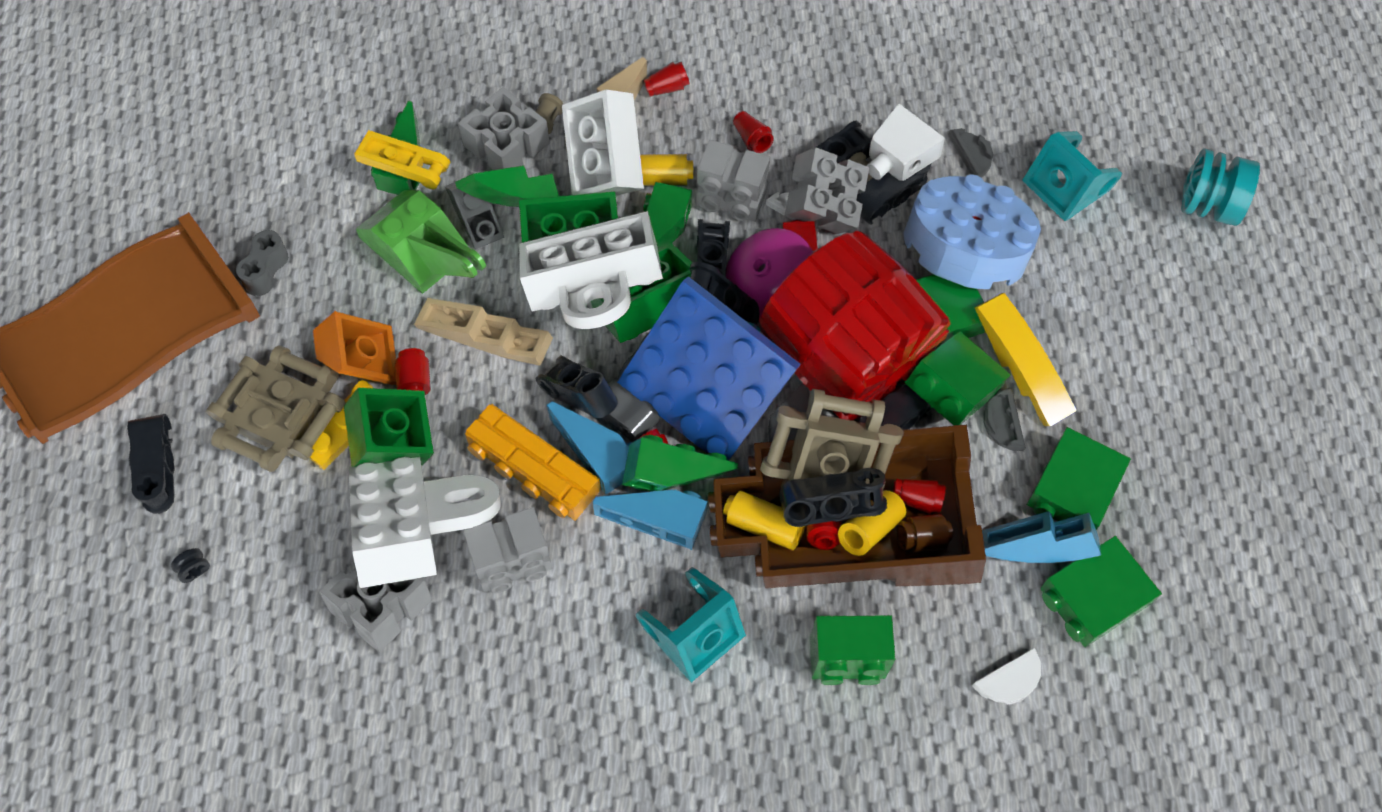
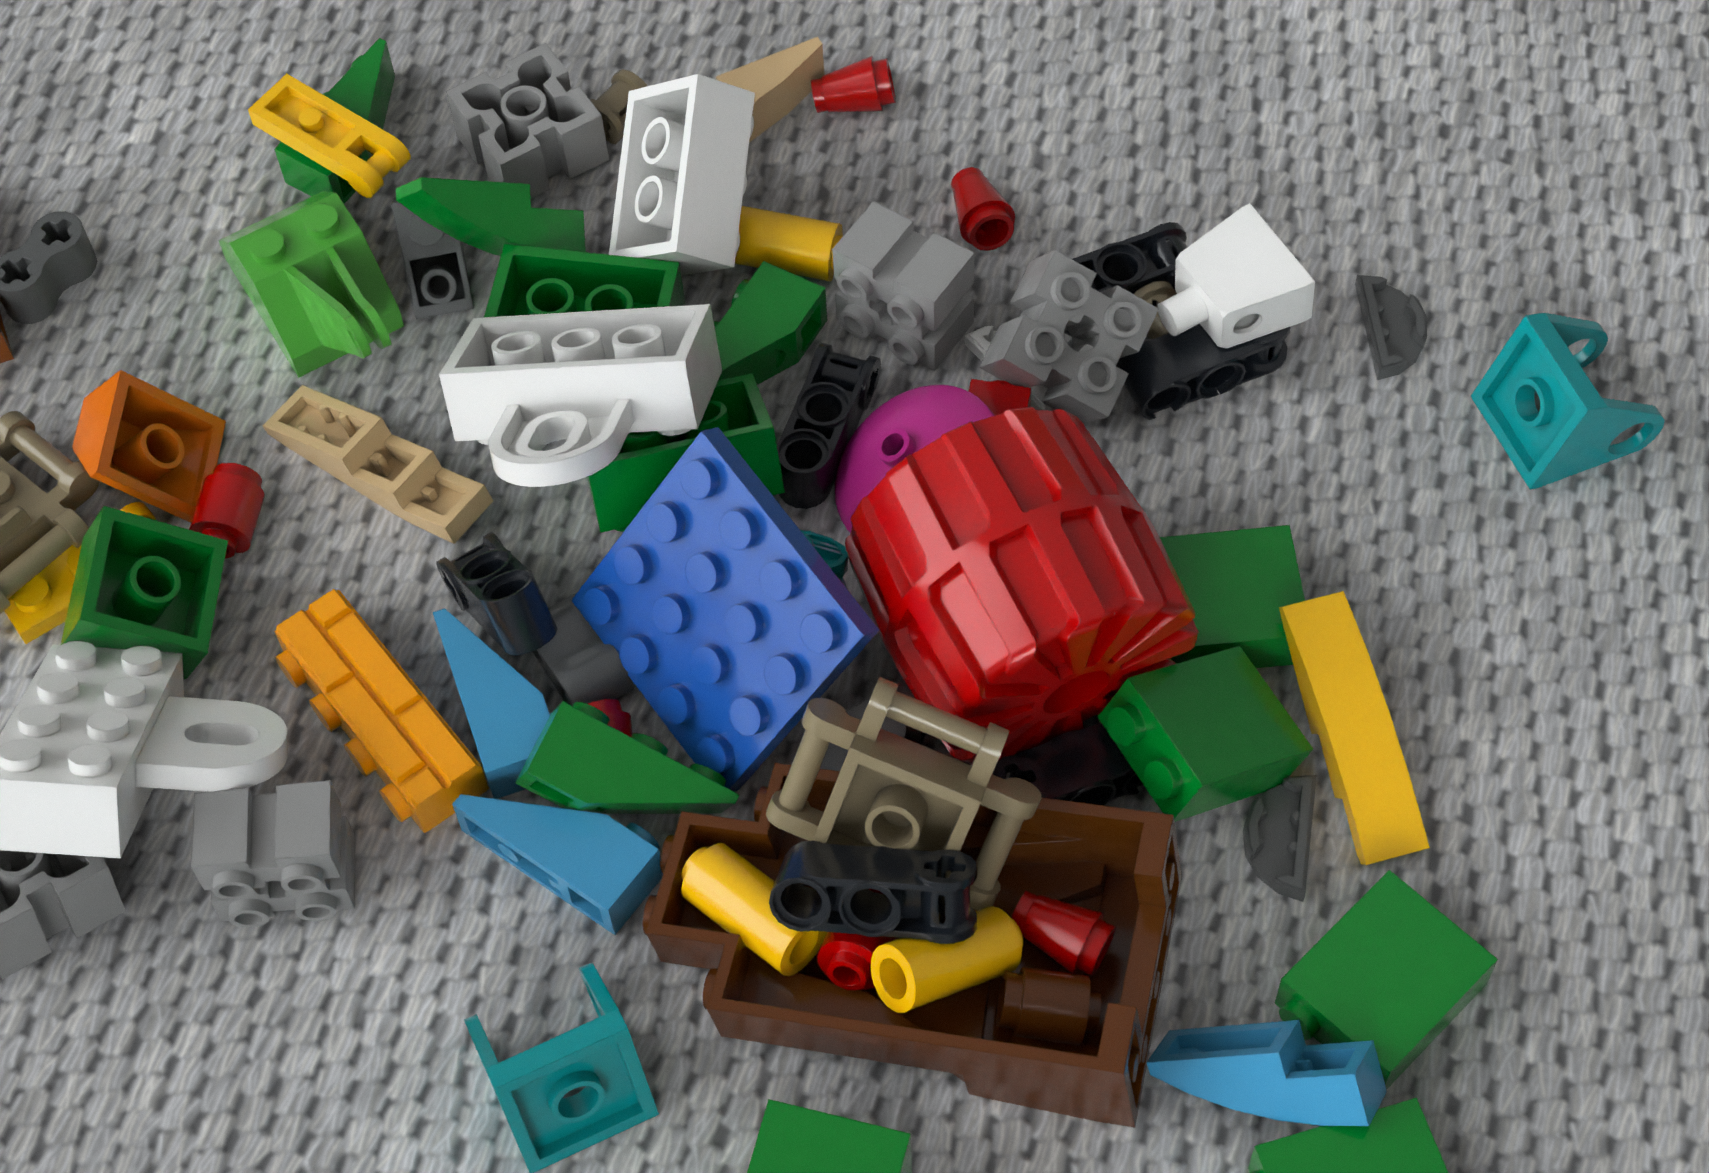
camera: 20 degrees right, 5 degrees down
(725, 291) = (797, 477): black piece -> none
(972, 231) = (1322, 466): light blue piece -> none

